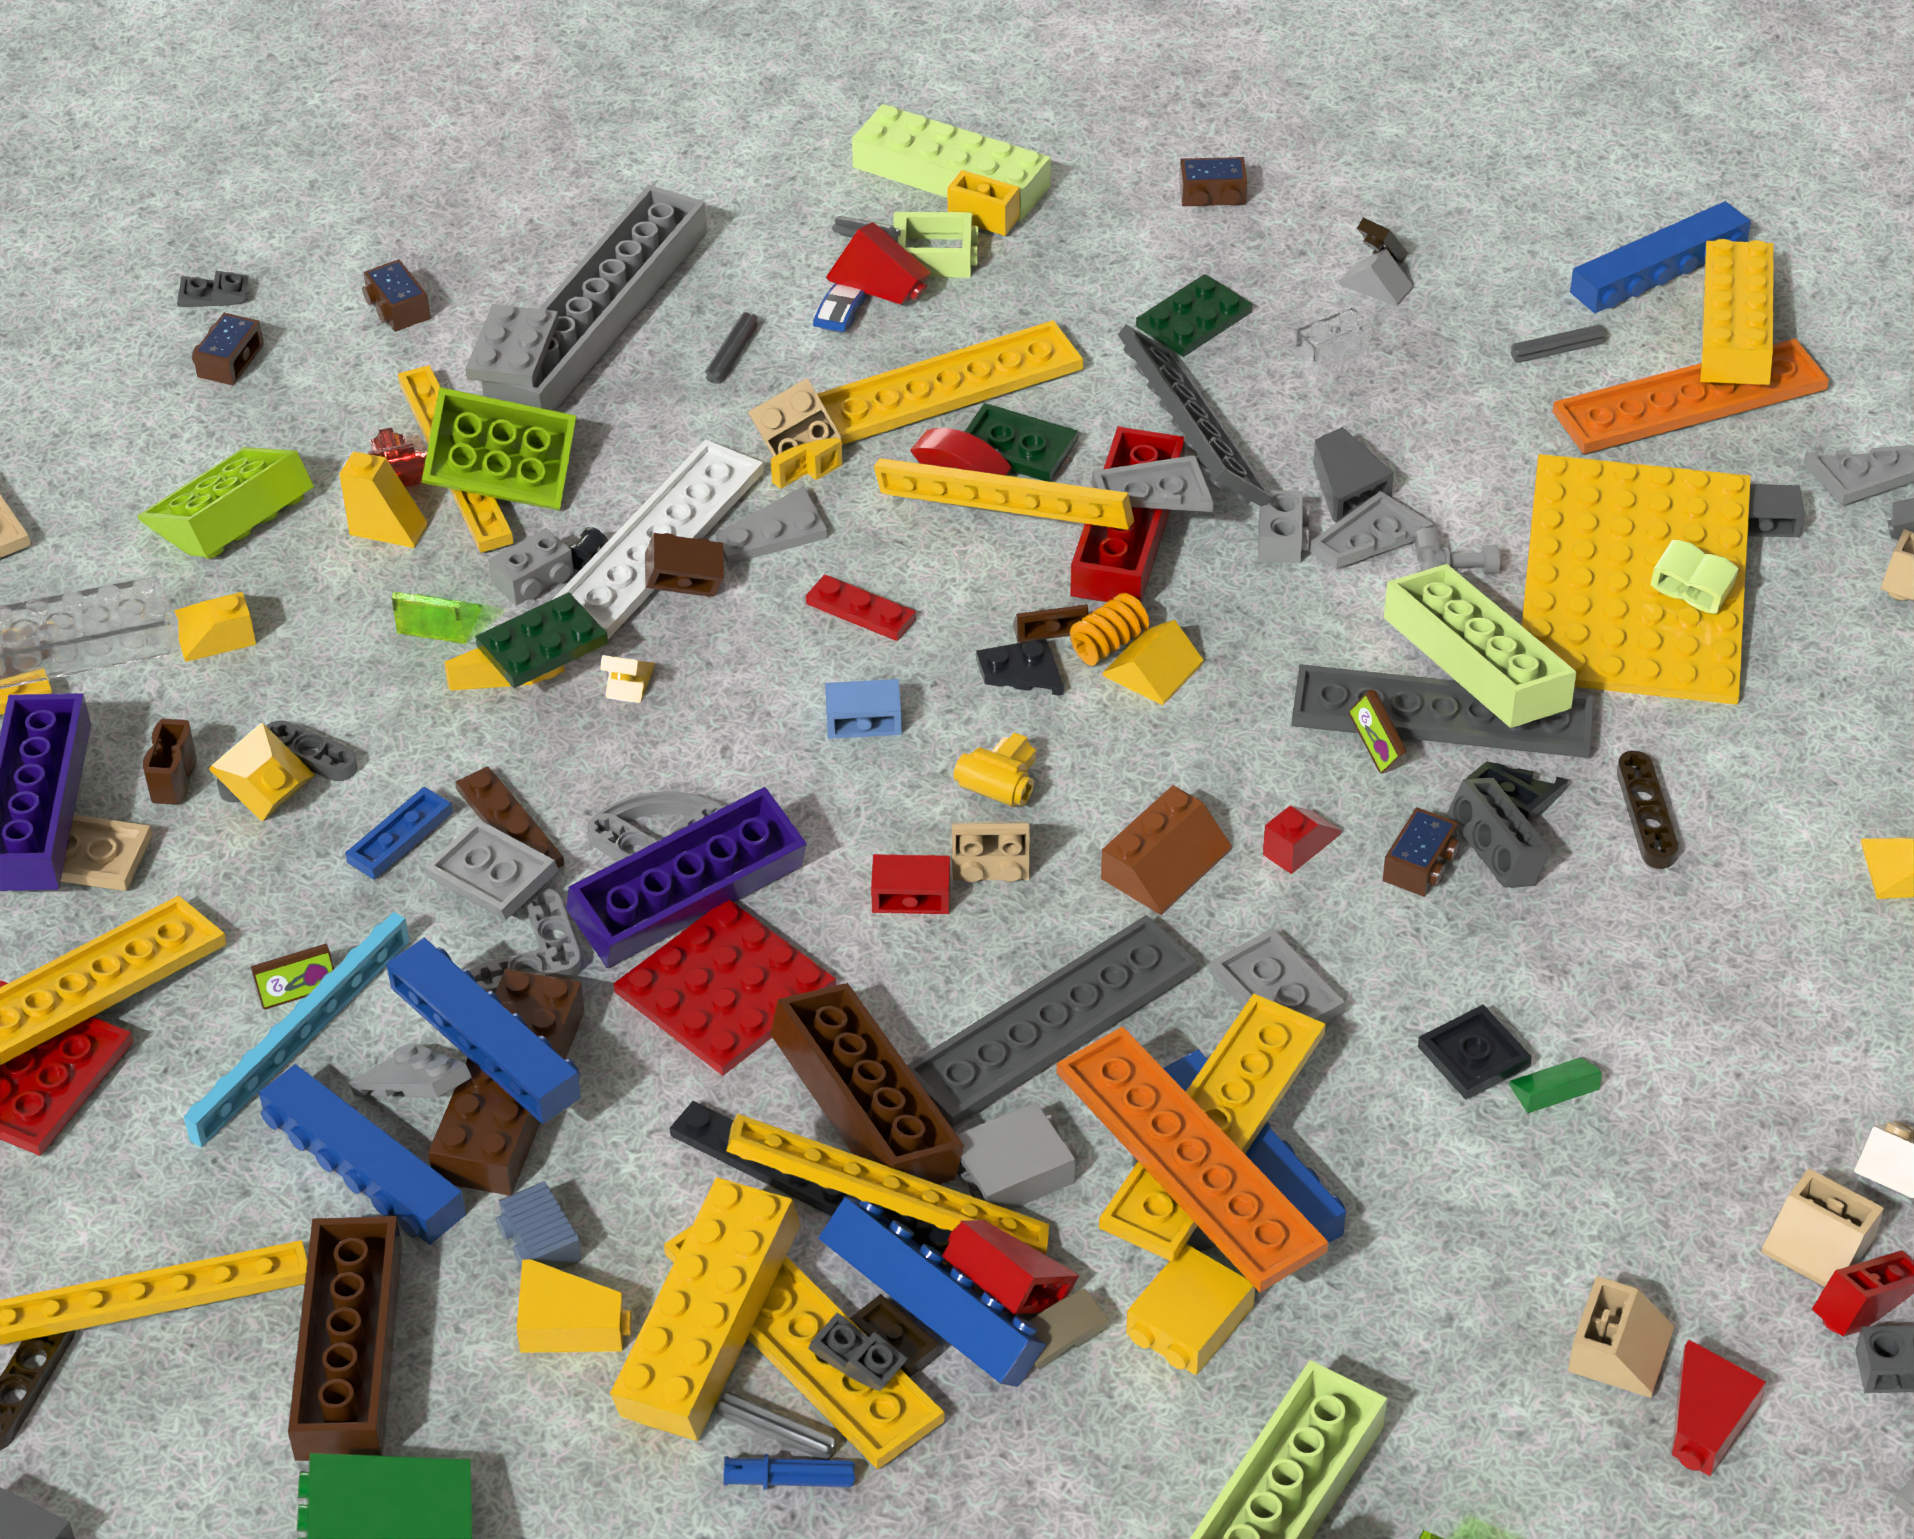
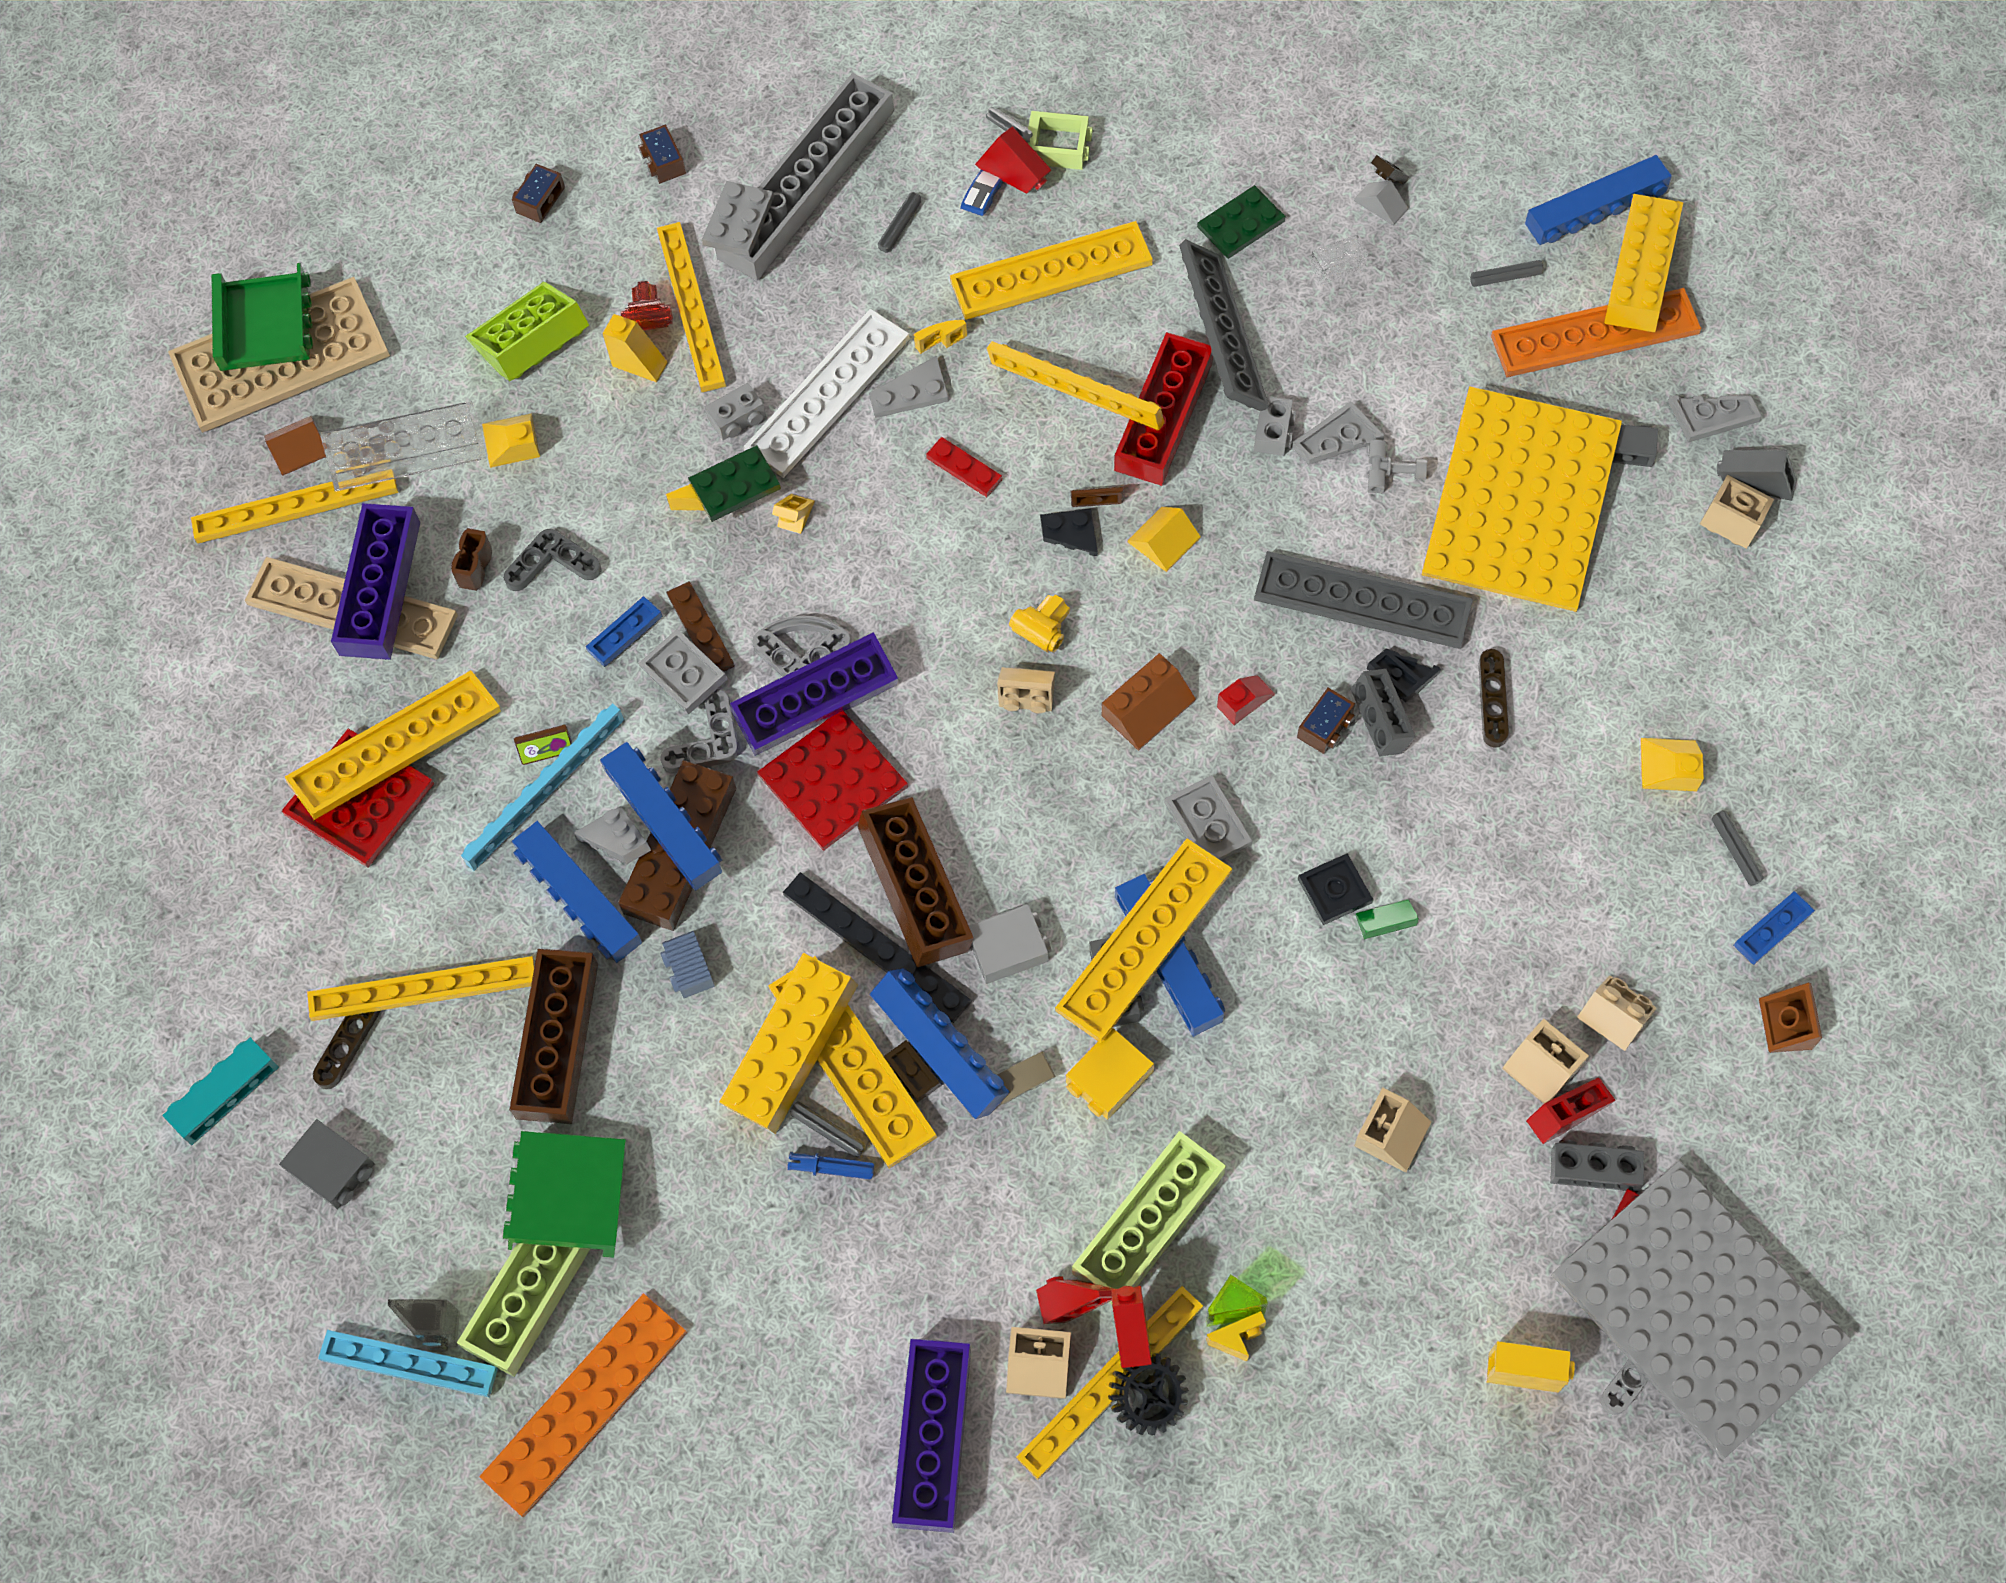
camera: 10 degrees right, 20 degrees up
(224, 290) = (539, 136): dark grey slope -> none
(261, 771) = (534, 572): yellow slope -> none
(434, 616) = (665, 446): clear neon green slope -> none
(498, 449) = (720, 310): lime slope -> none
(568, 1313) = (699, 1031): yellow slope -> none
(587, 546) = (775, 398): black bush -> none
(684, 564) = (841, 423): reddish brown brick -> none
(793, 419) = (934, 299): tan slope -> none
(857, 1355) = (884, 1086): dark grey slope -> none
(863, 708) = (953, 558): medium blue brick -> none
(875, 1181) = (917, 969): yellow plate -> none
(910, 884) = (968, 711): red brick -> none
(934, 153) = (1081, 62): yellowish green brick -> none
(958, 450) = (1045, 337): red brick -> none
(992, 202) = (1100, 104): yellow brick -> none
(1008, 1267) = (991, 1035): red slope -> none
(1025, 442) = (1094, 330): dark green plate -> none
(1051, 1019) = (1049, 832): dark grey plate -> none
(1108, 628) = (1134, 504): light orange piece -> none
(1159, 484) = (1185, 392): light grey wing -> none
(1192, 1159) = (1122, 971): orange plate -> none
(1213, 181) = (1273, 98): reddish brown brick -> none
(1348, 472) = (1330, 383): dark grey slope -> none
(1378, 733) = (1312, 618): slope -> none
(1479, 645) = (1396, 553): yellowish green brick -> none
(1694, 576) = (1562, 509): yellowish green brick -> none
(1711, 1407) = (1443, 1188): red slope -> none

